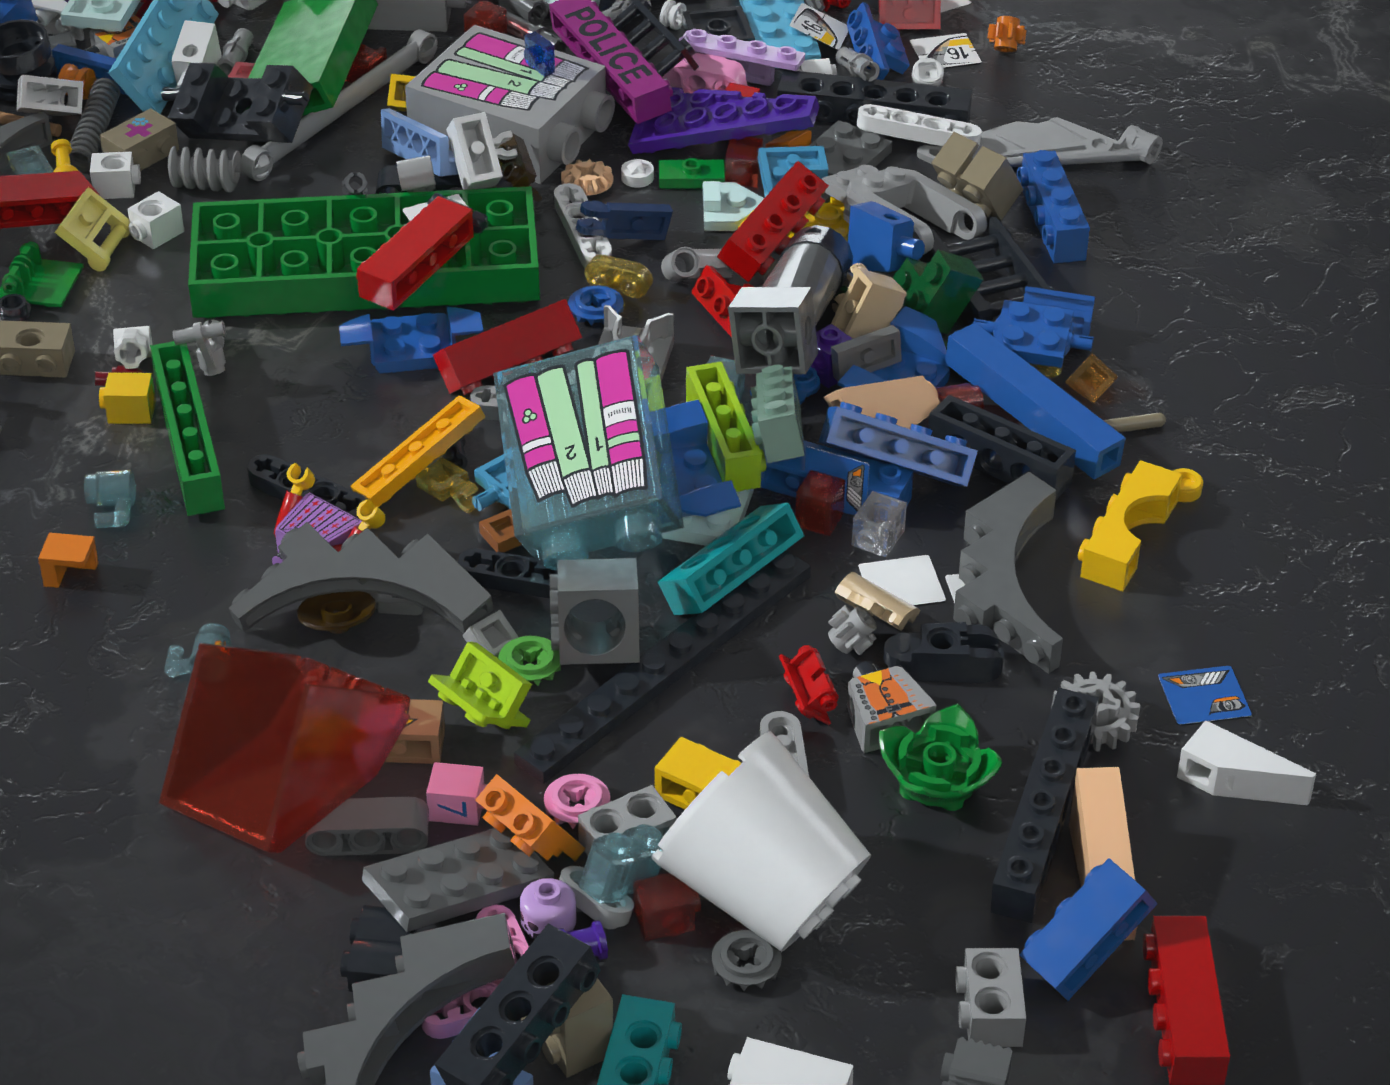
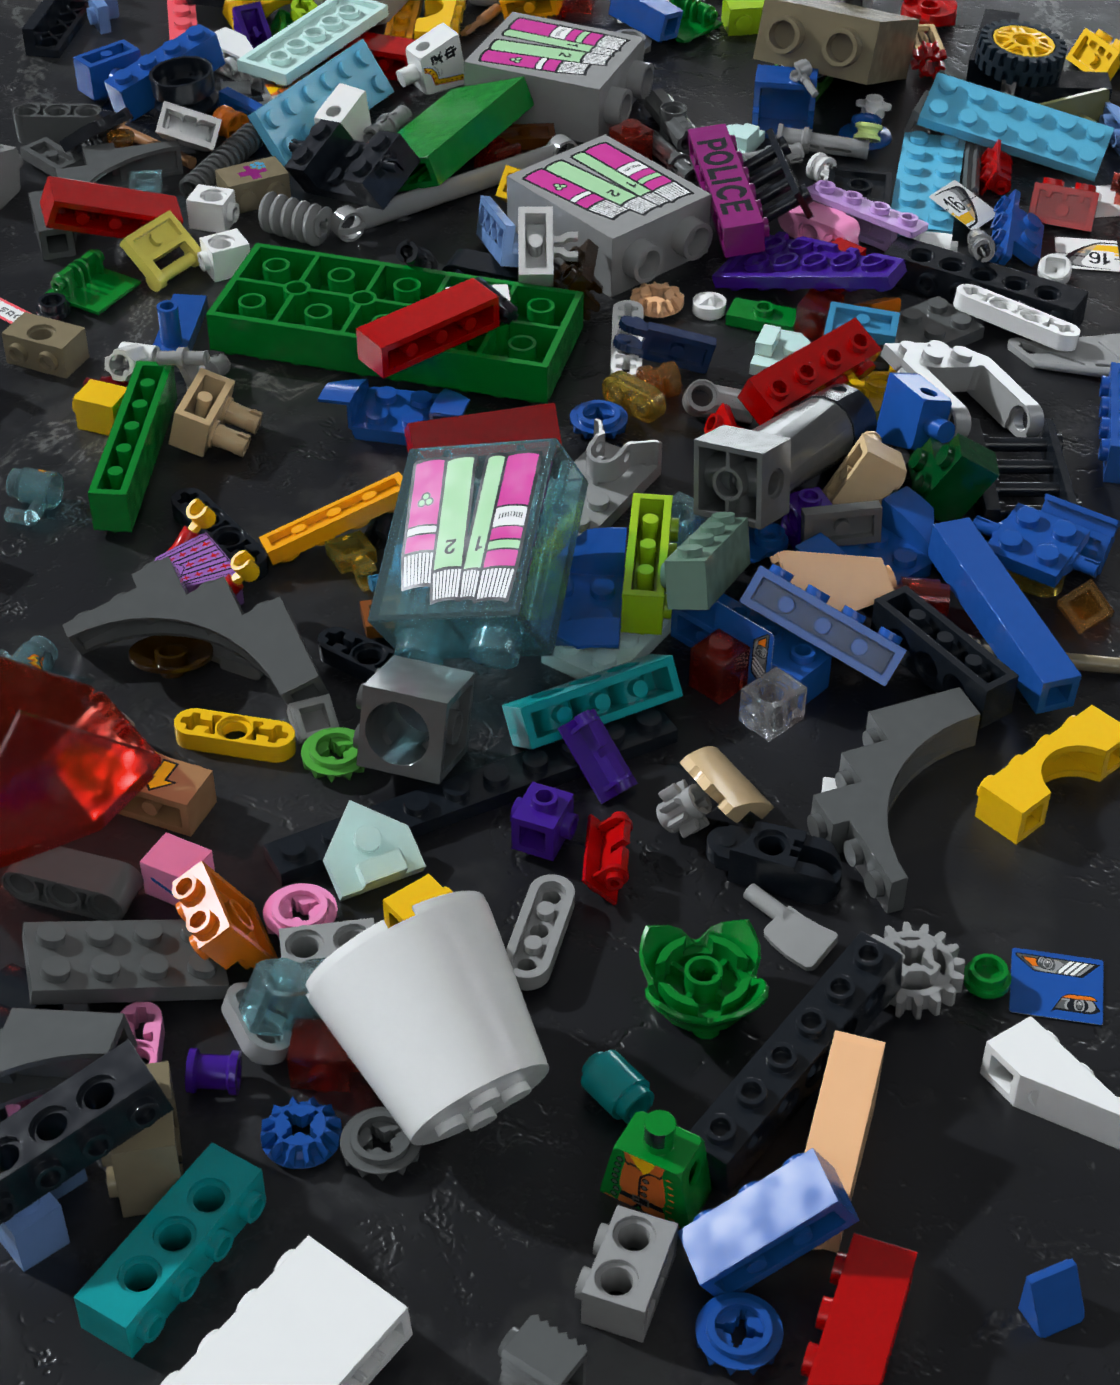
camera: 20 degrees right, 0 degrees up
(61, 149) = (172, 176): yellow piece -> none
(150, 301) = (180, 321): none -> blue piece
(235, 382) = (203, 414): none -> tan brick
(386, 34) = (529, 135): none -> reddish brown plate
(415, 658) = (273, 742): none -> yellow beam
(416, 174) = (472, 257): light grey piece -> none
(484, 689) = (258, 771): lime bracket -> none
(539, 53) = (646, 168): clear blue plate -> none
(545, 903) = (195, 1020): lavender head -> none
(610, 733) = (370, 852): none -> light aqua plate
(638, 250) = (664, 377): none -> clear orange wheel
(685, 983) = (301, 1150): none -> blue gear
(743, 670) = (542, 821): none -> dark purple brick
(760, 604) = (597, 755): none -> dark purple hinge
(883, 701) = (680, 894): torso -> none
(906, 578) = (777, 771): white sticker -> none
(911, 863) = (616, 1085): none -> teal brick
(977, 911) = (659, 1168): none -> green torso
(982, 179) = (1050, 374): dark tan piece -> none
(985, 708) = (791, 932): none -> light grey piece
(1105, 1005) = (718, 1321): none -> blue gear
(1153, 700) = (987, 976): none -> green plate
(1308, 924) = (1053, 1299): none -> blue slope

